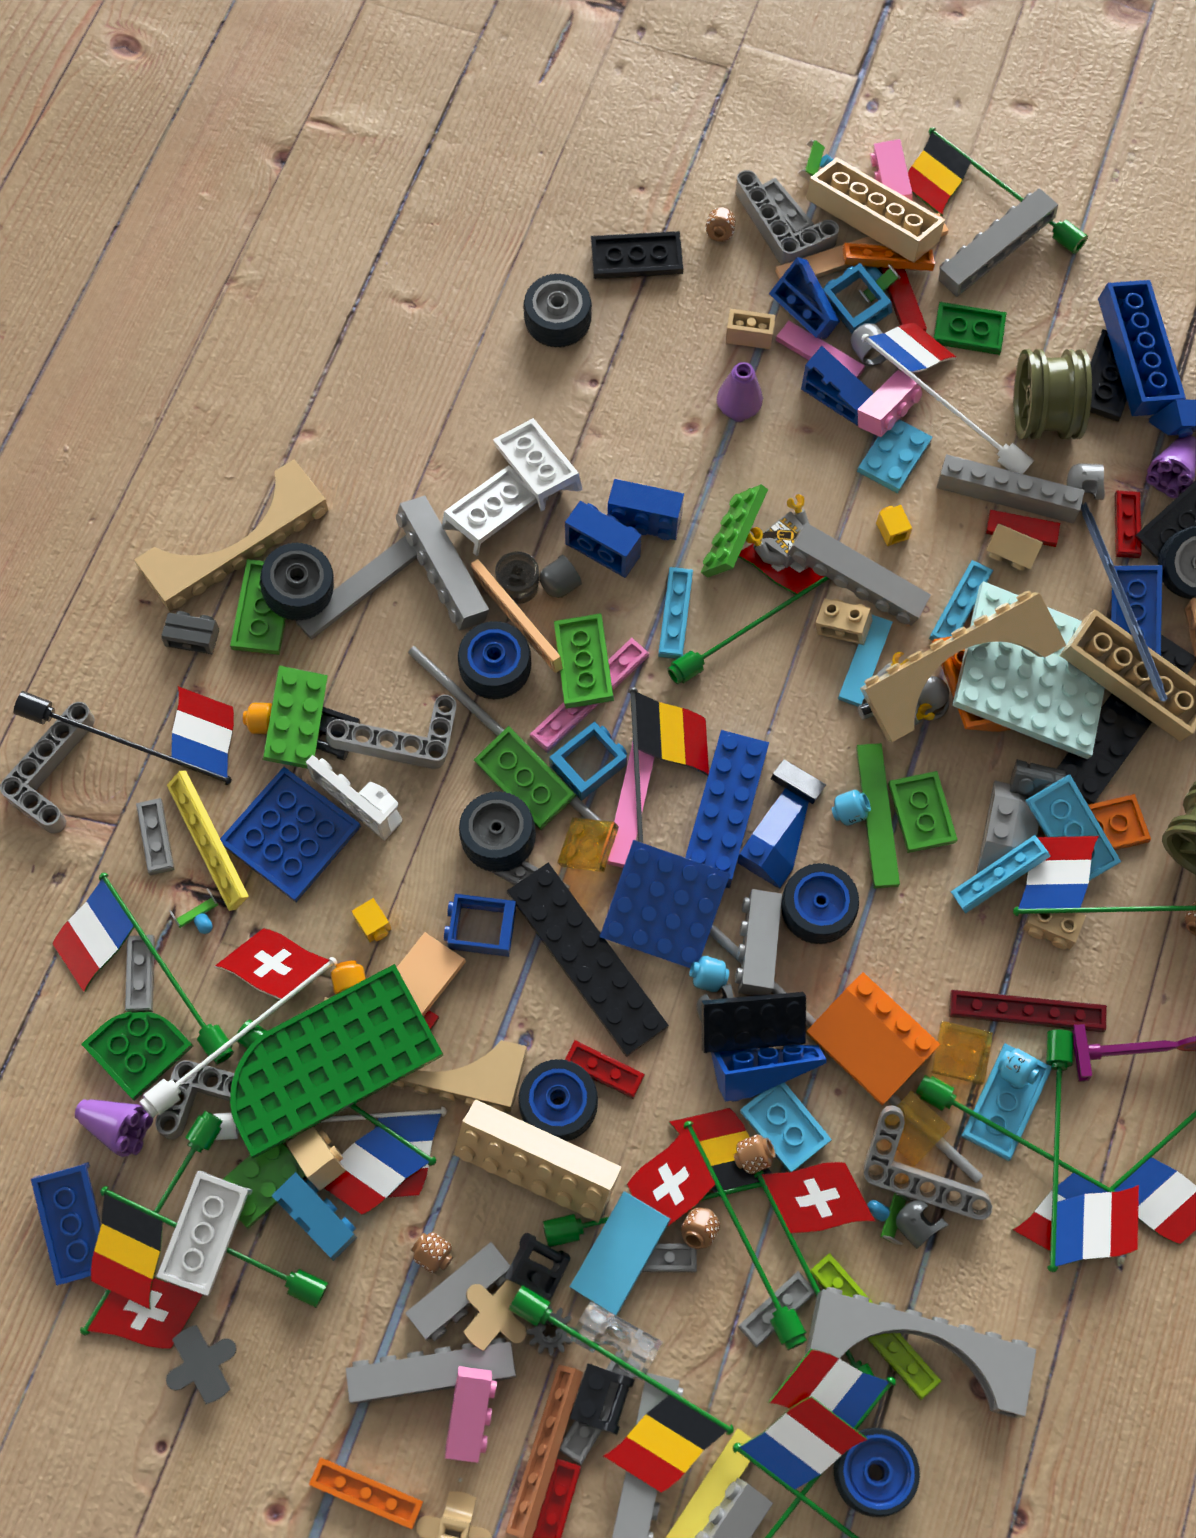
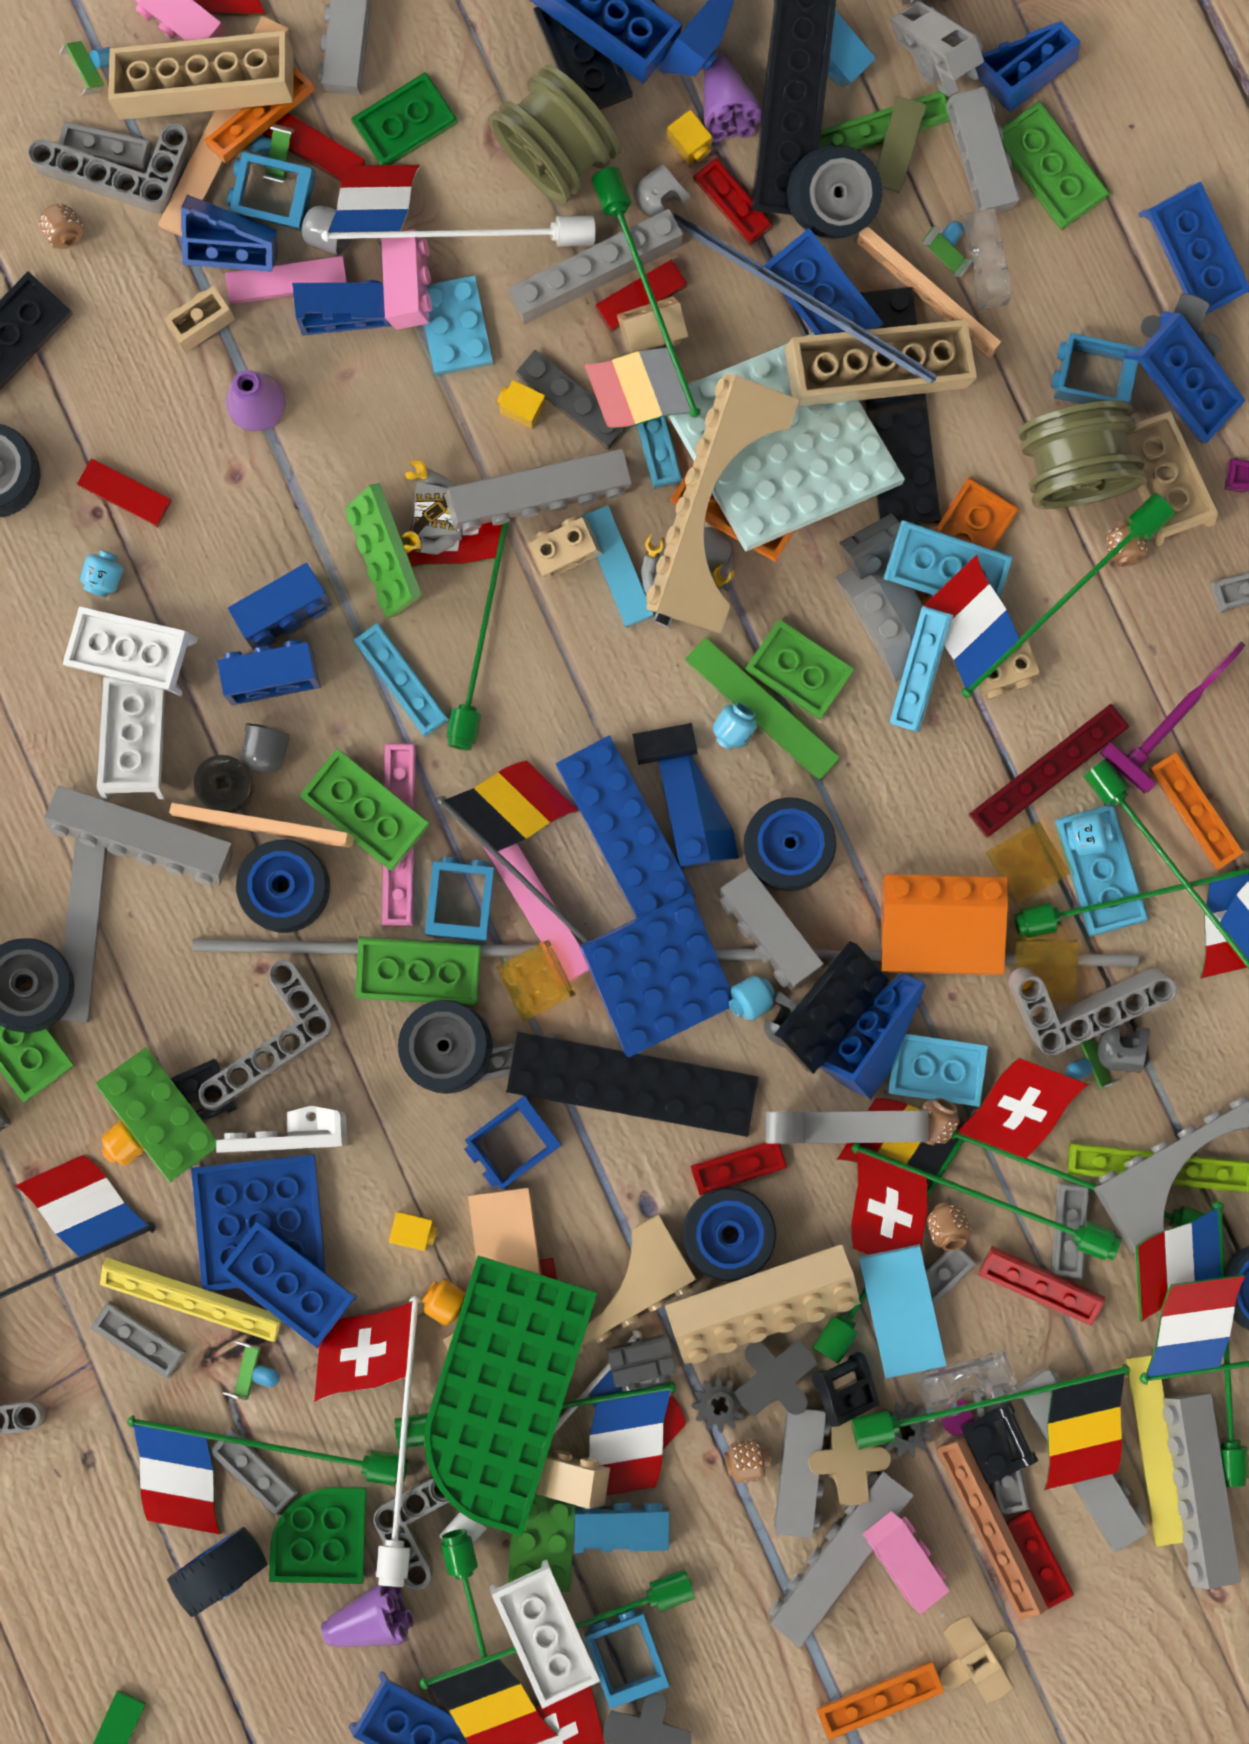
camera: 45 degrees left, 15 degrees up
(58, 1003) = (217, 1572): none -> black wheel
(241, 1268) = (637, 1688): none -> dark azure window
(269, 880) = (287, 1284): none -> blue plate
(429, 1126) = (641, 1362): none -> dark grey brick
(459, 1204) = (707, 1407): none -> dark grey gear
(500, 1216) = (776, 1378): none -> dark grey piece
(563, 411) = (101, 573): none -> medium azure head
(585, 1356) = (953, 1423): none -> magenta tile
(618, 384) = (124, 492): none -> red tile
(663, 1077) = (847, 1127): none -> light grey beam
(725, 1326) = (1041, 1286): none -> red tile
(926, 548) = (567, 397): none -> dark grey plate
(983, 568) = (646, 381): none -> flag
(1104, 1120) = (1196, 811): none -> orange plate
(1133, 467) = (690, 138): none -> yellow brick

